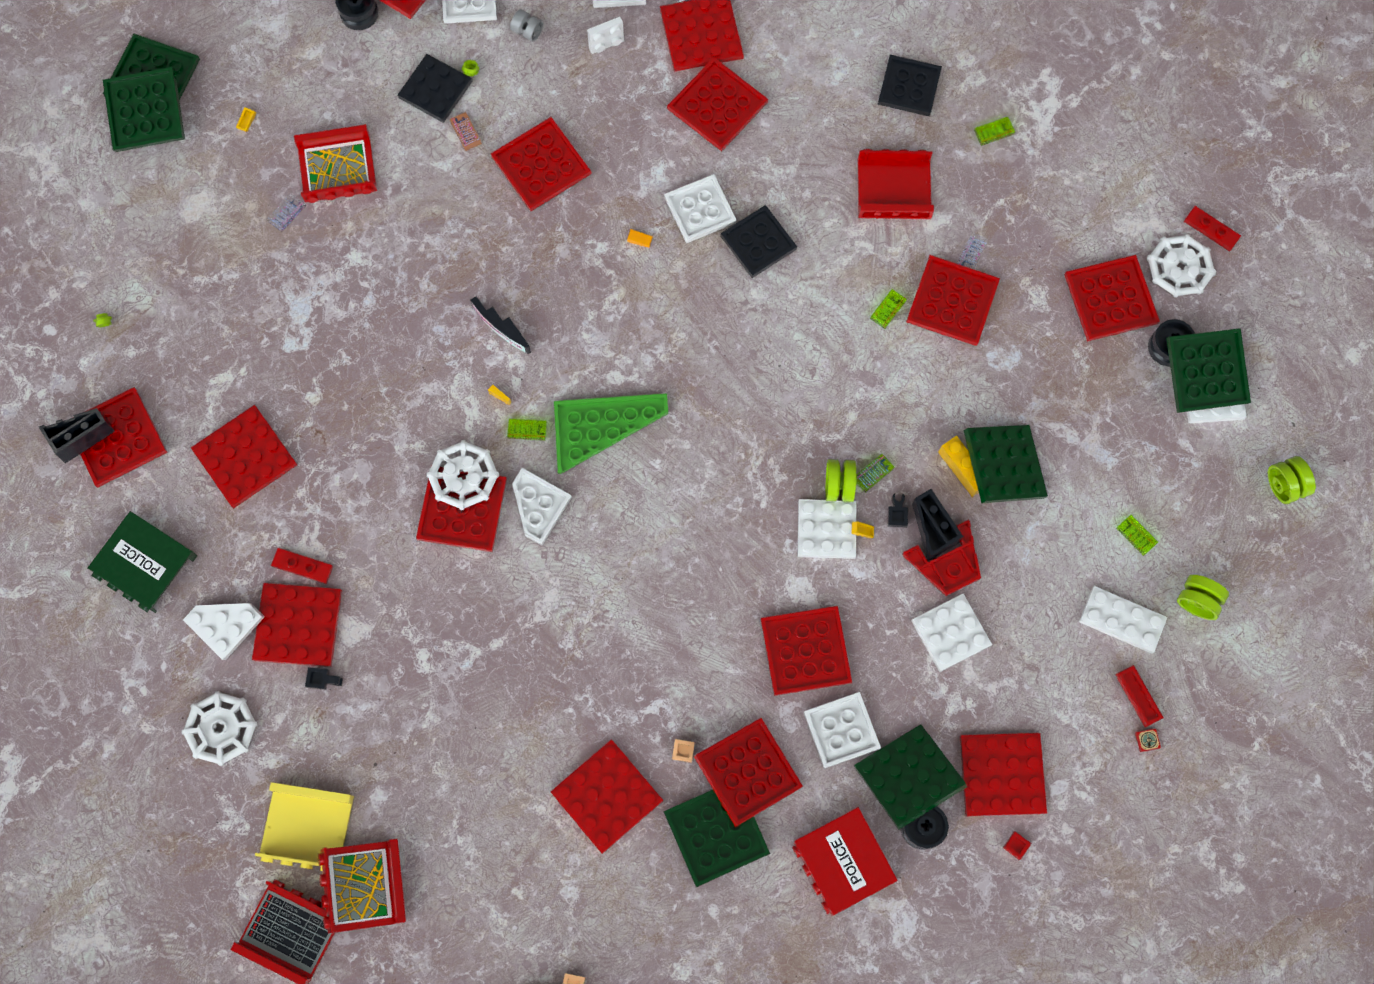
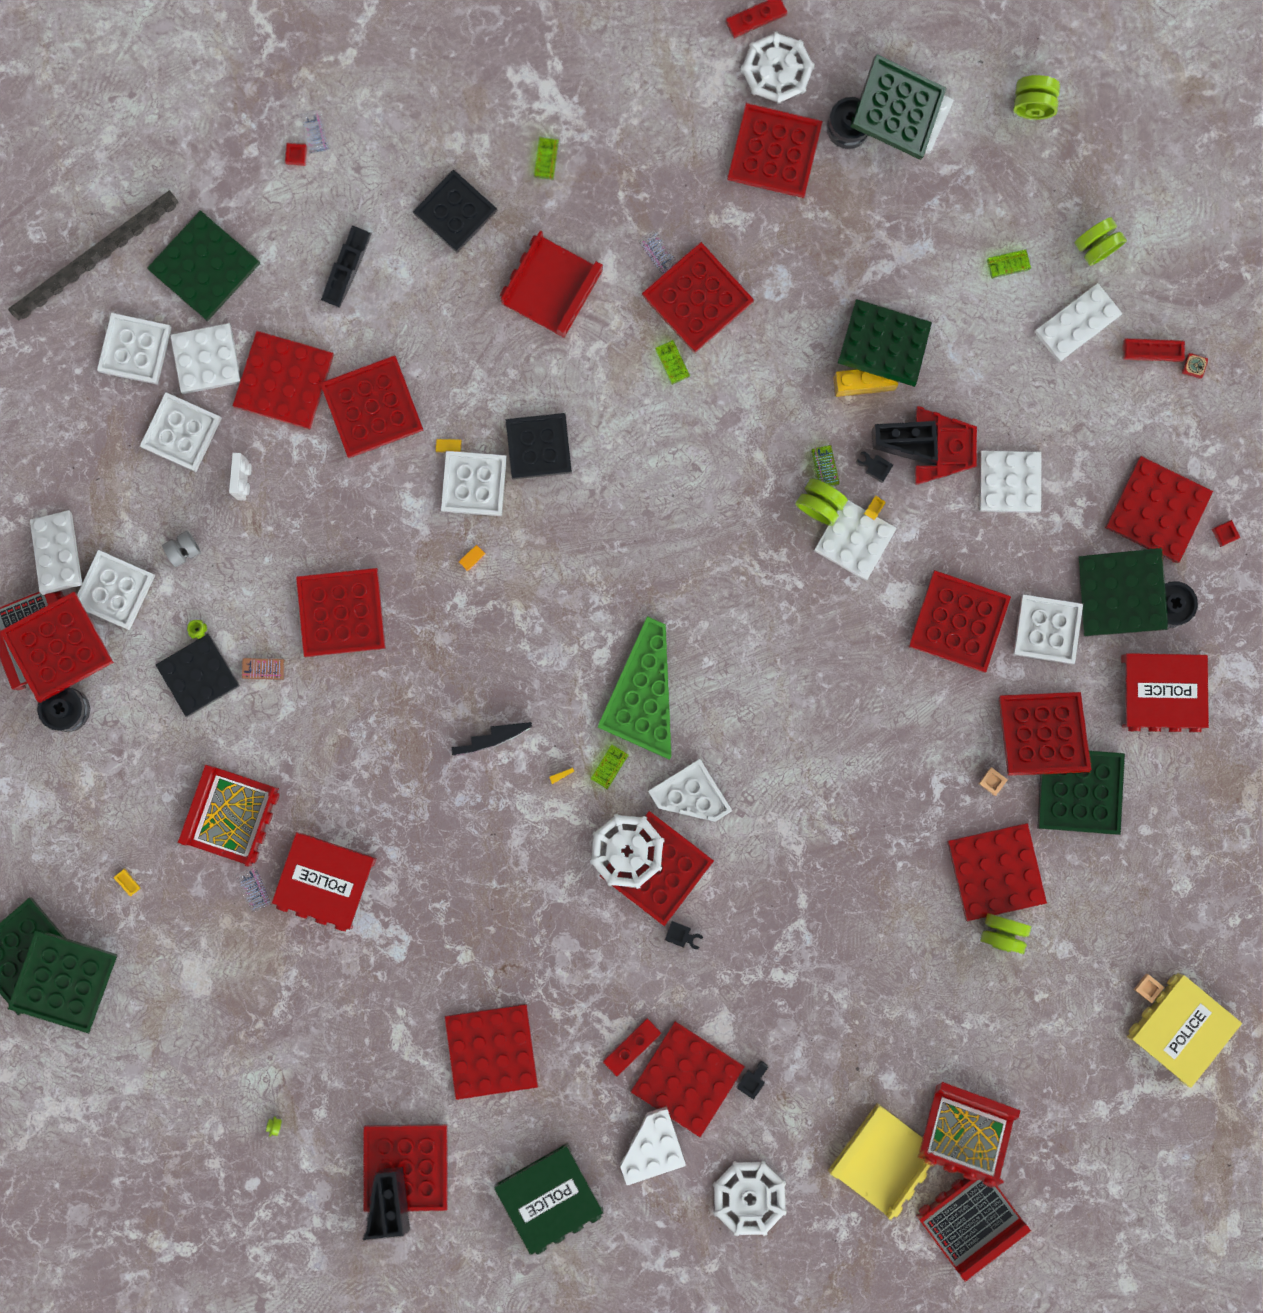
camera: 65 degrees left, 10 degrees up
(318, 256) = (323, 881): none -> red panel
(415, 555) = (679, 935): none -> black plate
(551, 827) = (1005, 934): none -> lime wheel
(720, 175) = (444, 445): none -> yellow piece
(817, 31) = (346, 266): none -> black slope

